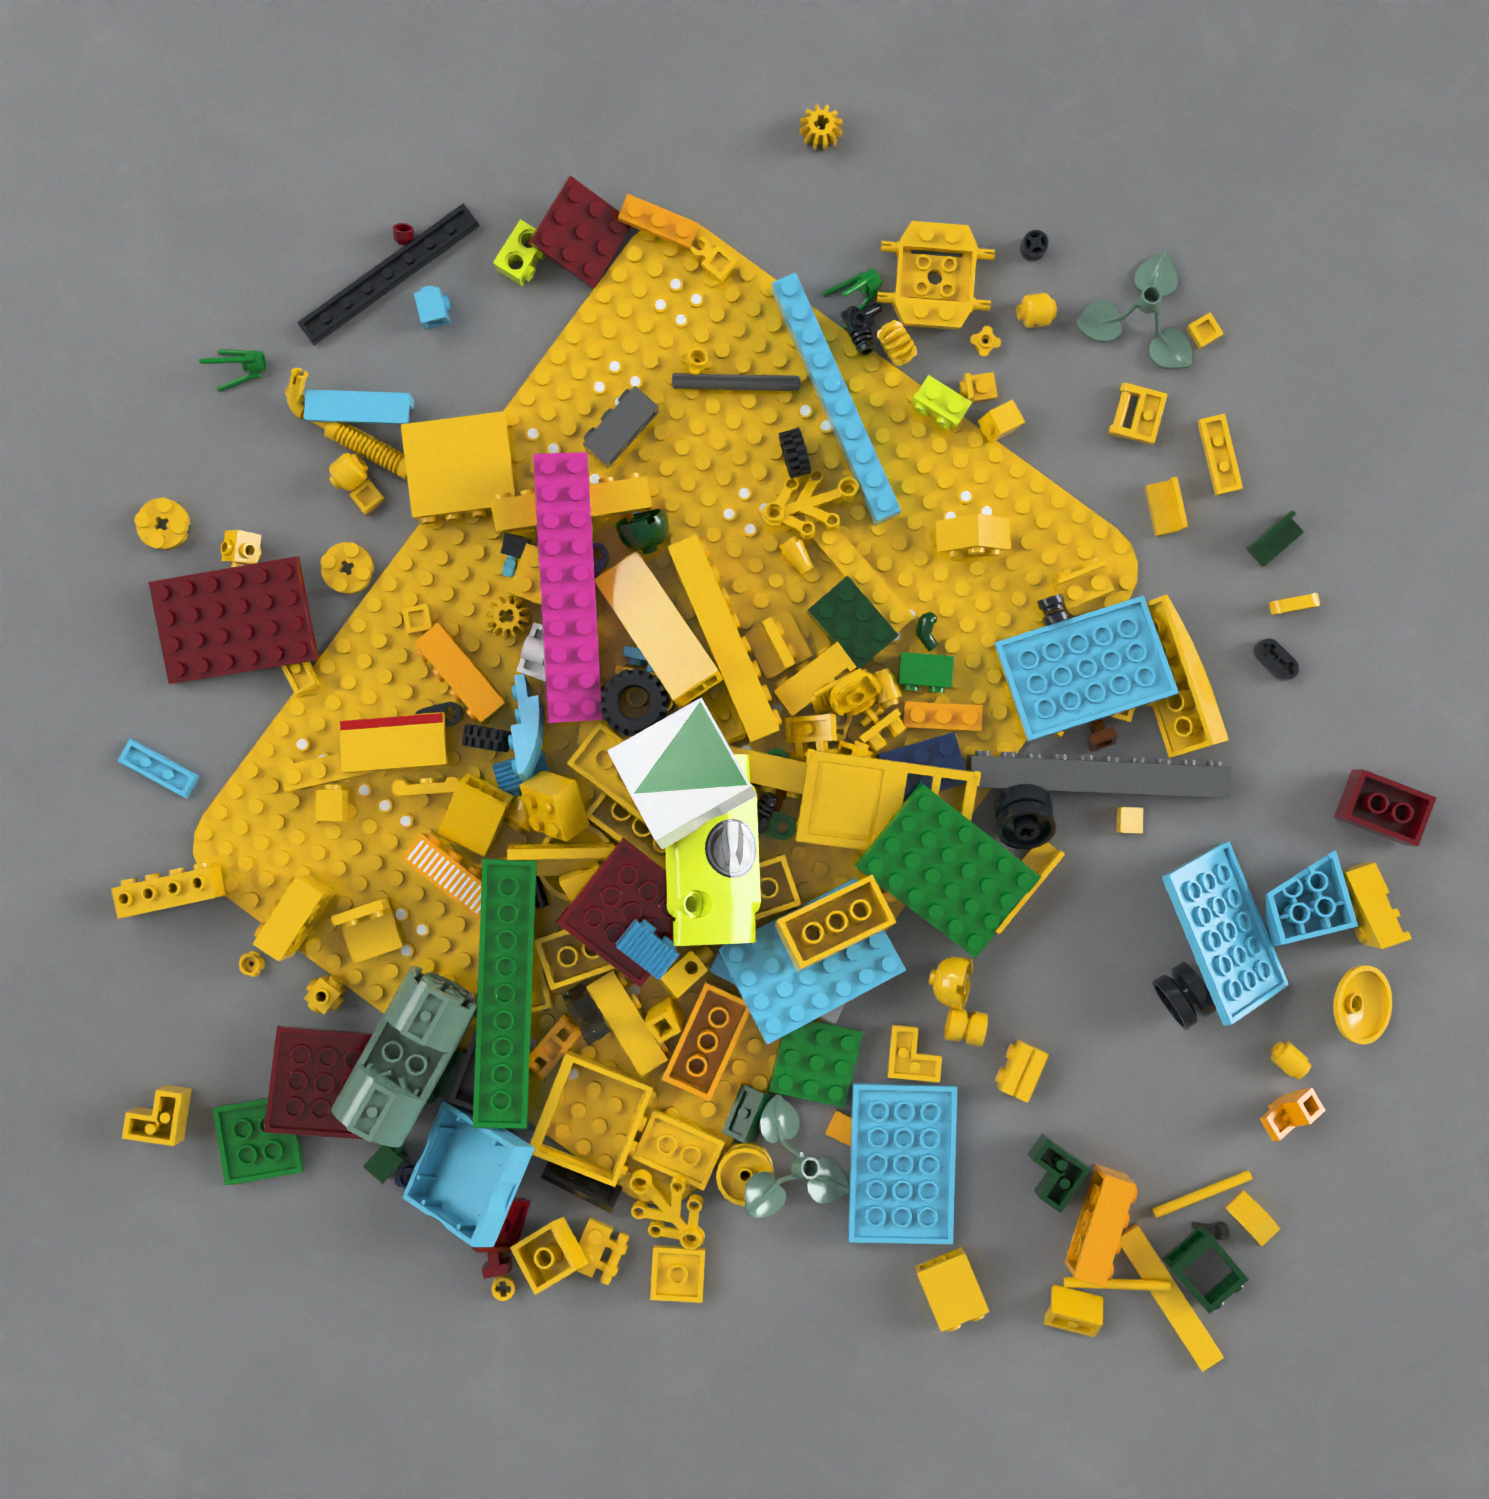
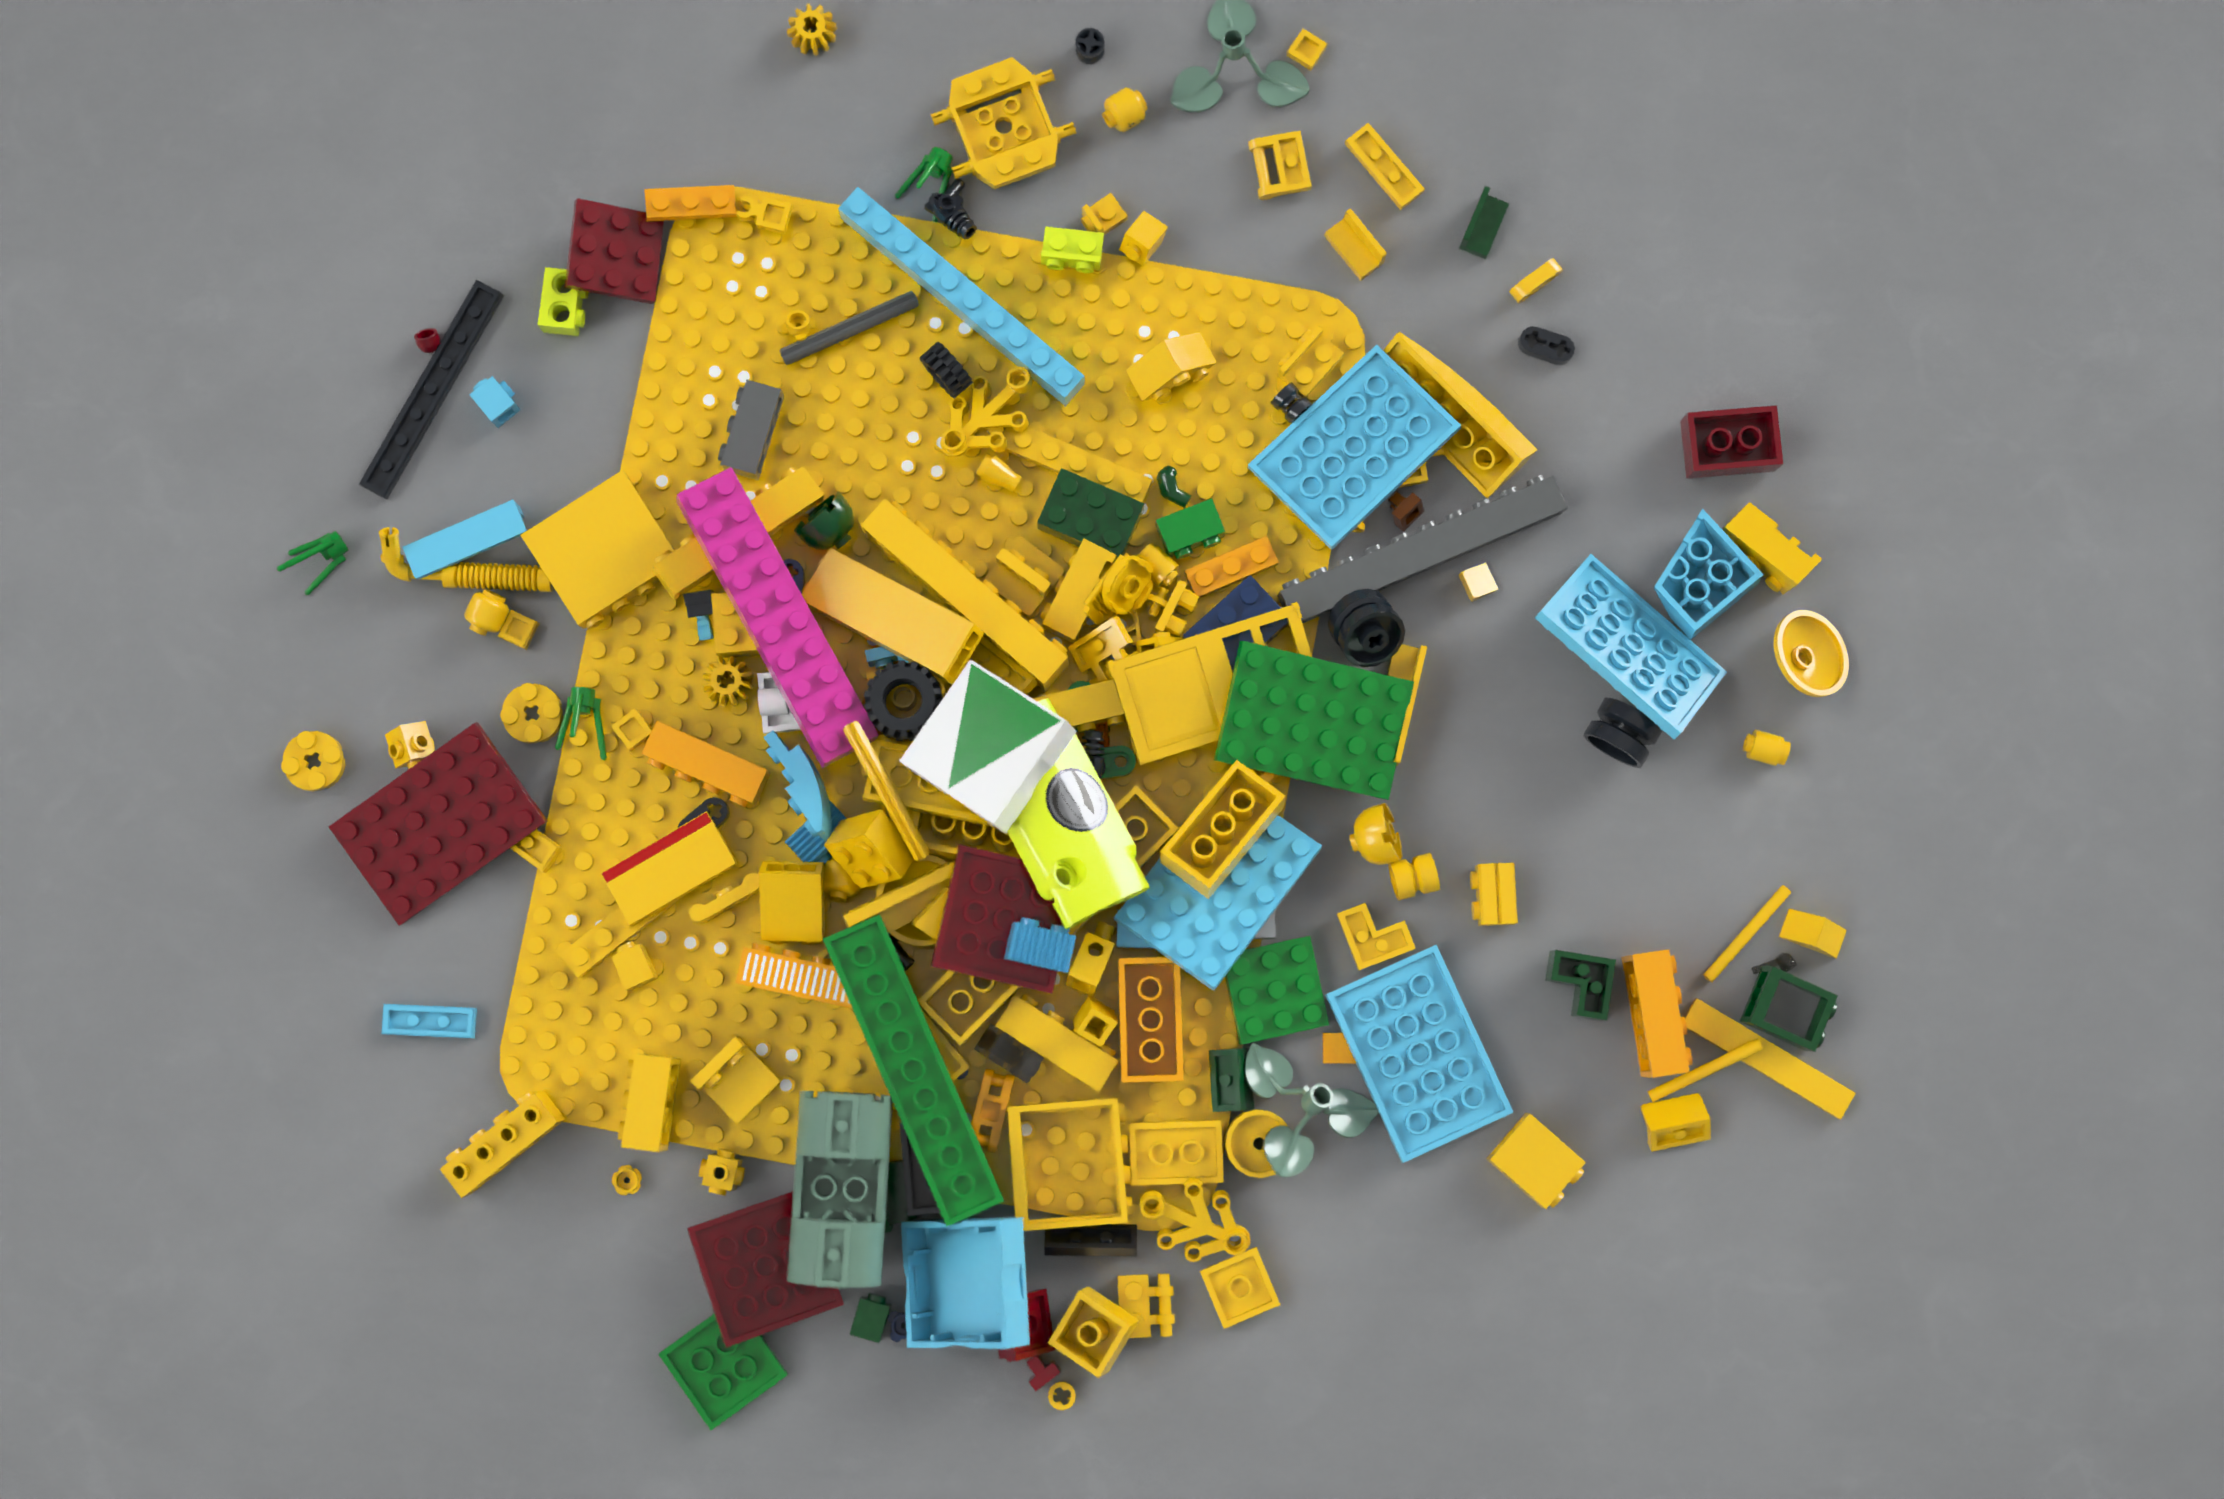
camera: 30 degrees left, 5 degrees down
(163, 1123) = (615, 1390): yellow brick -> none
(385, 578) = (581, 703): none -> green plant
(486, 738) = (765, 816): black tyre -> none
(586, 767) = (886, 790): none -> yellow axle
(896, 343) = (996, 209): yellow gear -> none
(980, 346) = (1088, 174): yellow plate -> none
(1291, 1110) = (1794, 801): light orange brick -> none

